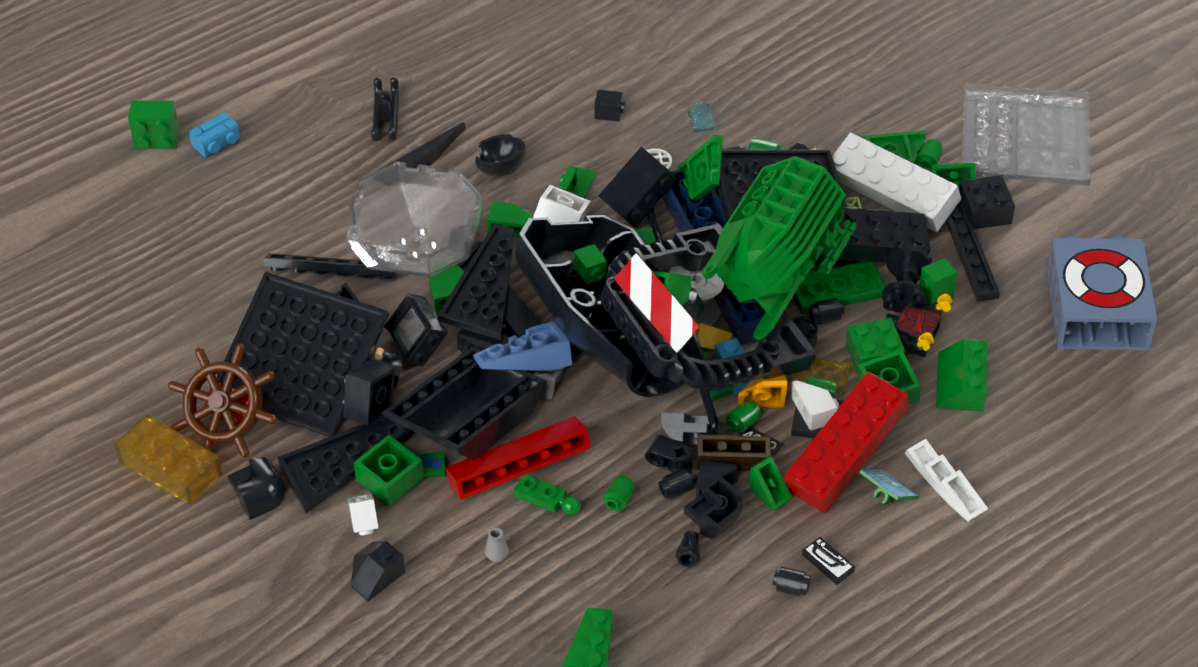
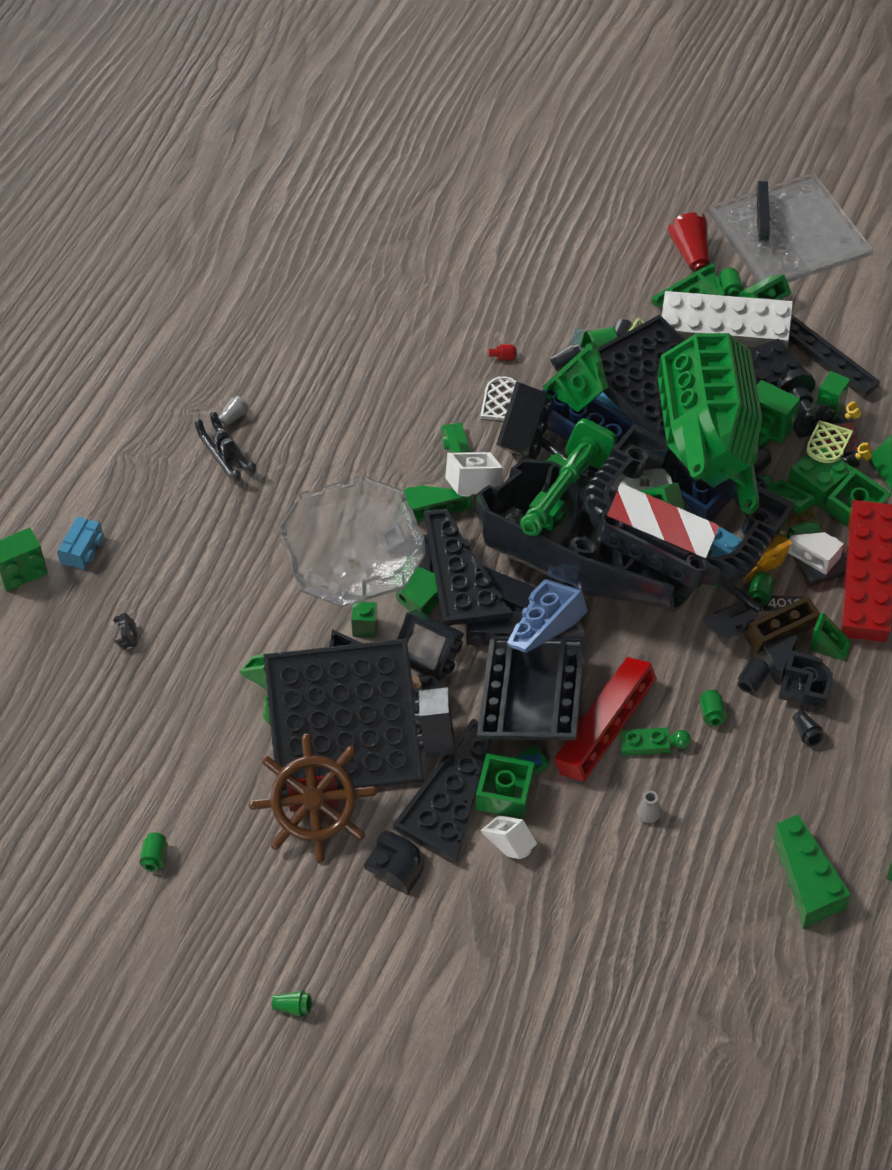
camera: 30 degrees left, 5 degrees up
(80, 389) = (153, 852): none -> green brick
(93, 555) = (294, 1003): none -> green cone
(168, 459) = (293, 876): clear yellow brick -> none
(199, 207) = (129, 637): none -> black piece
(322, 265) = (283, 623): black plate -> none
(376, 568) = (558, 880): black slope -> none
(385, 289) = (364, 619): none -> green brick
(414, 85) = (234, 410): none -> light grey cone
(431, 150) = (288, 482): black wedge -> none
(500, 155) = (370, 443): black cylinder -> none
(609, 105) = (425, 355): black brick -> none
(667, 453) = (726, 652): black piece -> none
(676, 221) = (587, 447): none -> green piece
(679, 130) = (503, 352): none -> red cylinder
(701, 117) = (514, 331): clear light blue bracket -> none
(832, 349) = (801, 498): none -> green plate
(866, 271) = (778, 411): none -> green brick
(920, 102) = (691, 239): none -> red cone
(925, 319) = (830, 427): none -> yellowish green window
(987, 201) = (813, 303): black brick -> none
(1006, 105) = (763, 216): none -> black beam

